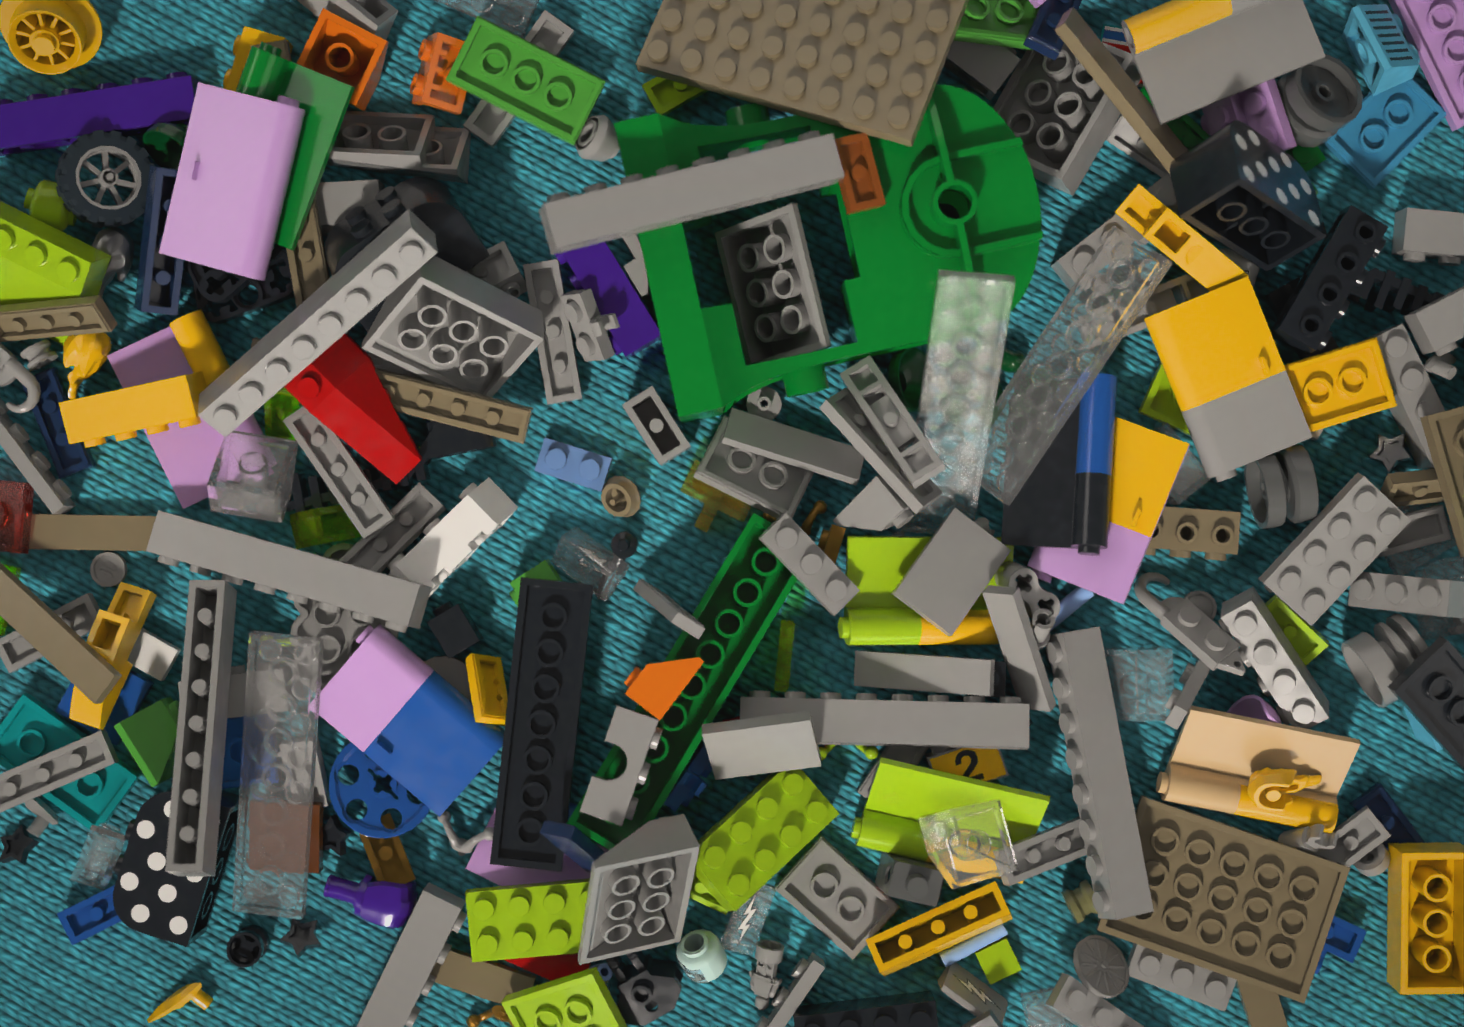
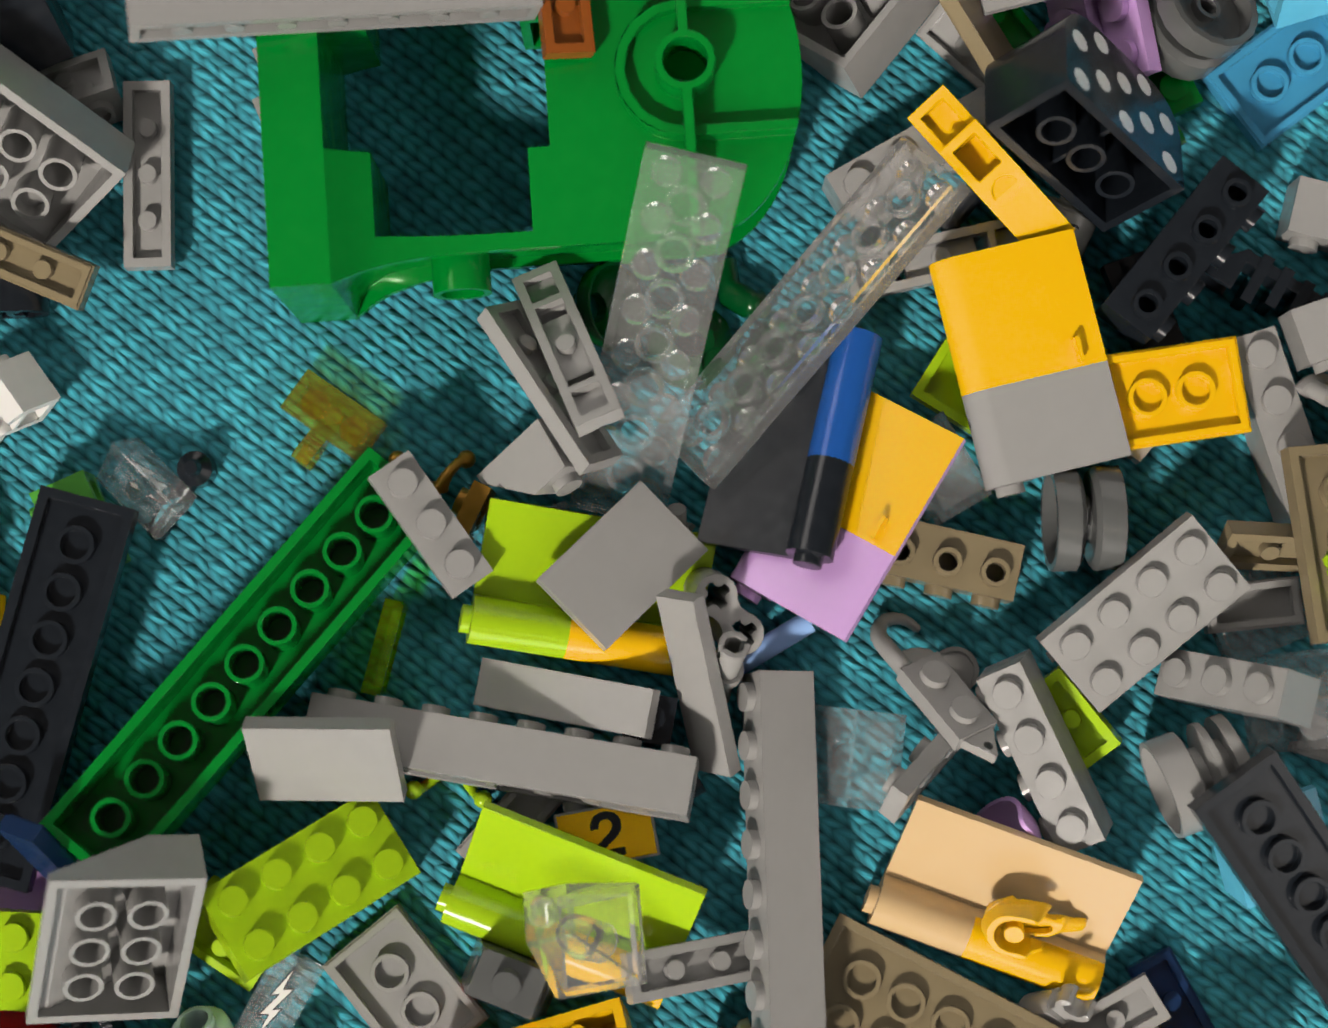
camera: 10 degrees right, 5 degrees down
(573, 464) = (147, 354): medium blue plate -> none
(588, 325) = (194, 170): light grey plate -> none
(599, 270) = (225, 119): dark purple brick -> none
(613, 797) = (108, 796): light grey arch -> none
(621, 497) = (201, 405): dark tan hat -> none
(656, 426) = (261, 317): light grey brick -> none
(661, 683) = (199, 652): orange slope -> none
(669, 608) = (233, 556): light grey tile -> none
(689, 782) = (224, 801): blue plate -> none
(752, 477) = (386, 393): light grey tile -> none
(773, 286) = (439, 144): light grey slope -> none
(773, 403) = (418, 321): light grey tile -> none
(793, 446) = (439, 370): light grey tile -> none
(1390, 451) = (1240, 497): black piece -> none

